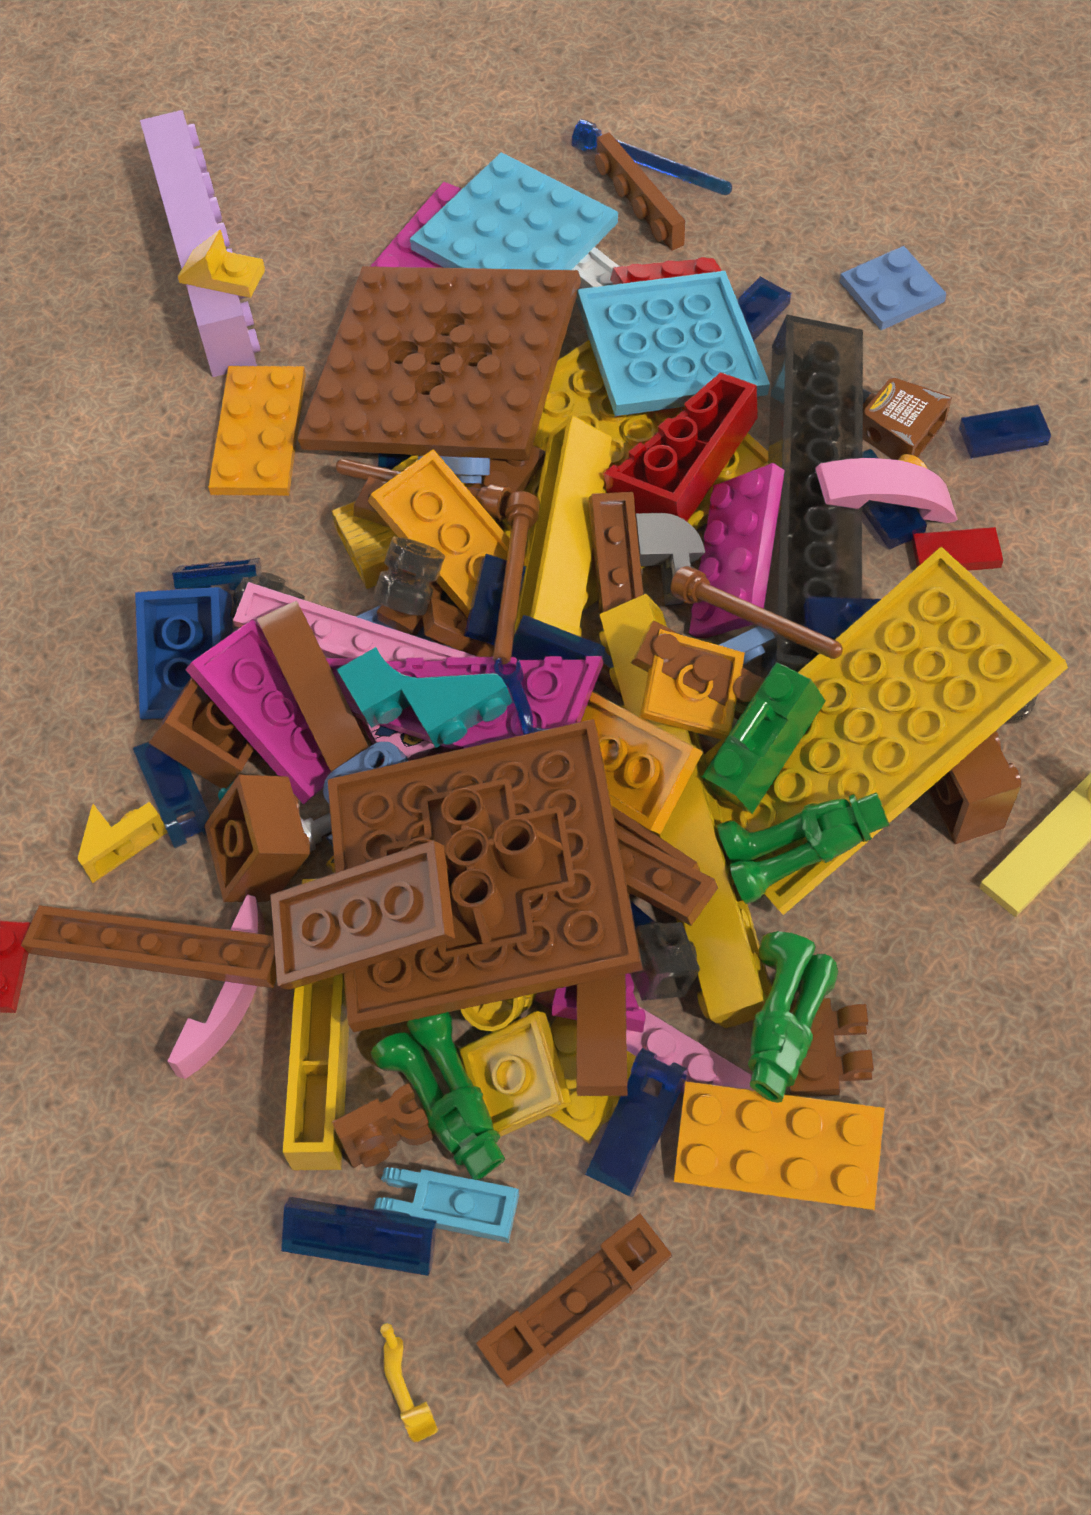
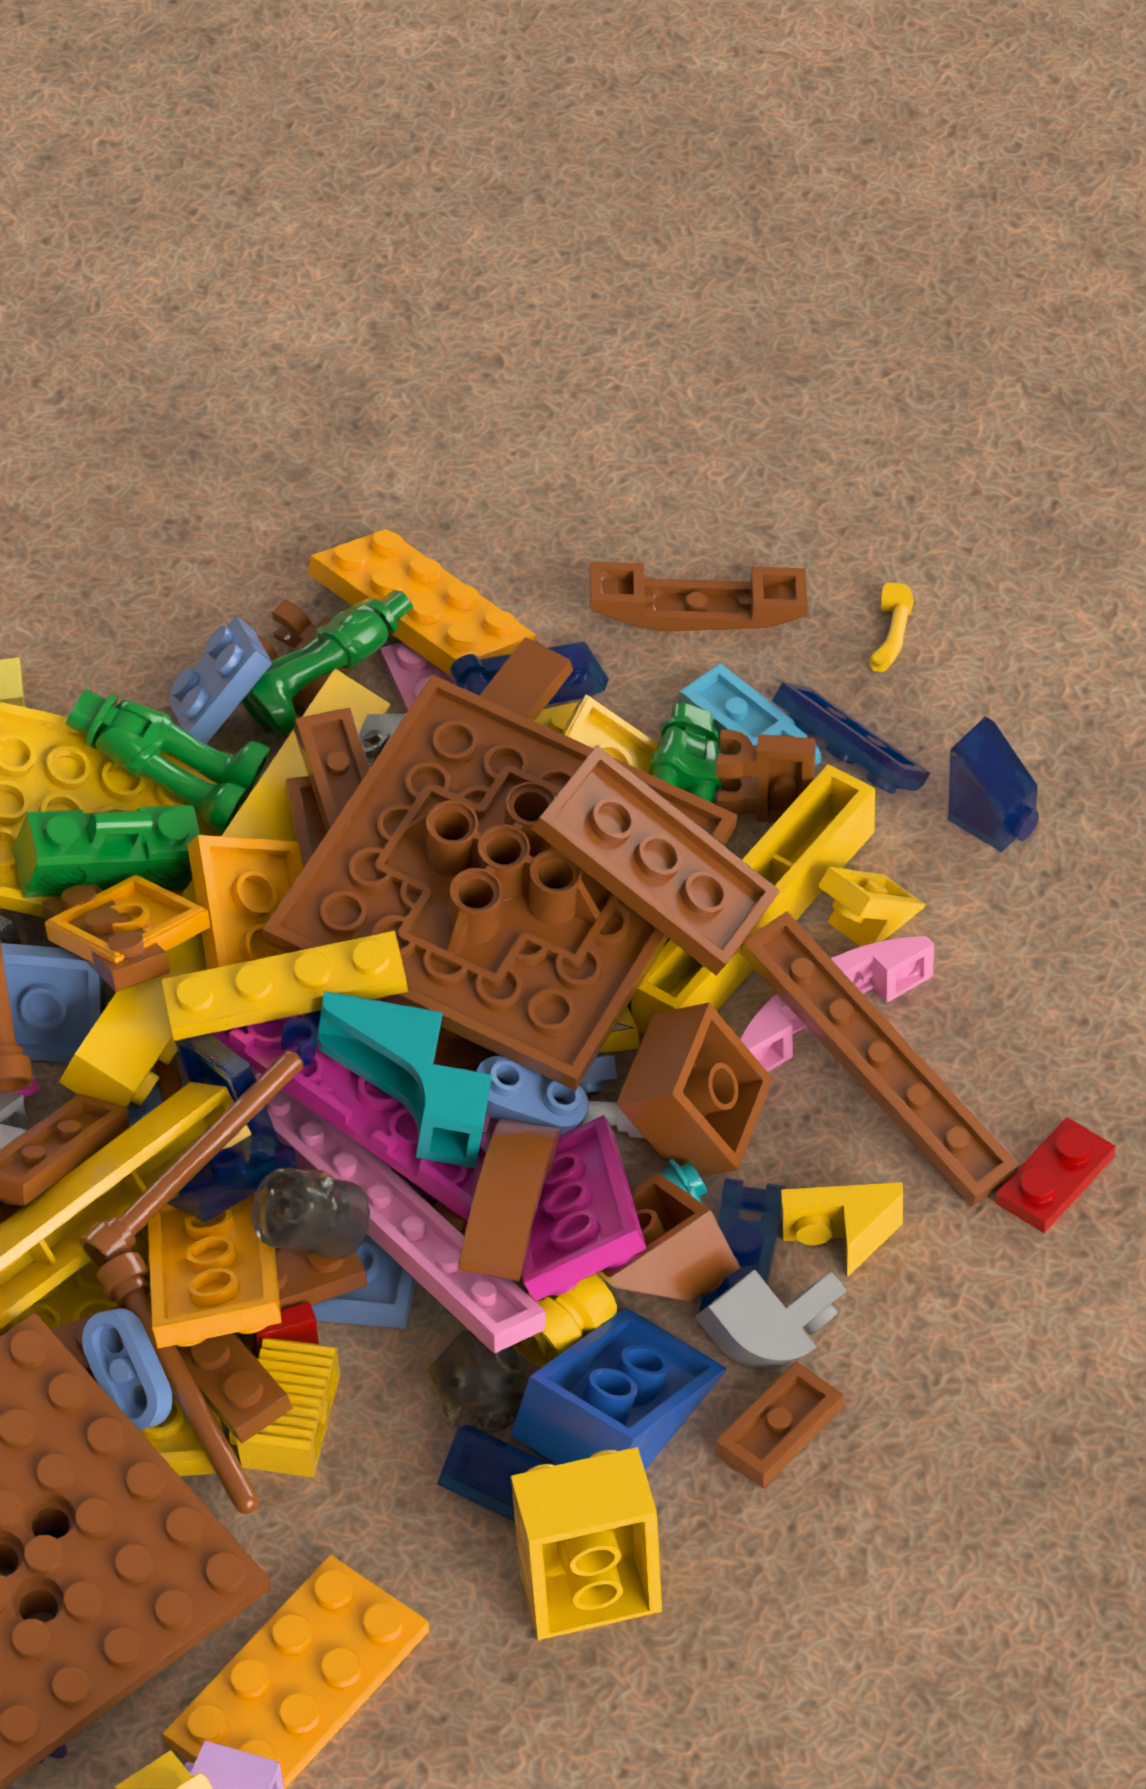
camera: 145 degrees left, 10 degrees down
(80, 696) = (779, 1424): none -> dark orange plate
(112, 732) = (758, 1329): none -> light grey brick
(121, 523) = (587, 1542): none -> yellow brick
(207, 1236) = (991, 788): none -> clear blue slope
(246, 1087) = (867, 904): none -> yellow slope
(544, 693) = (282, 985): none -> yellow plate
(840, 947) = (220, 679): none -> medium blue plate

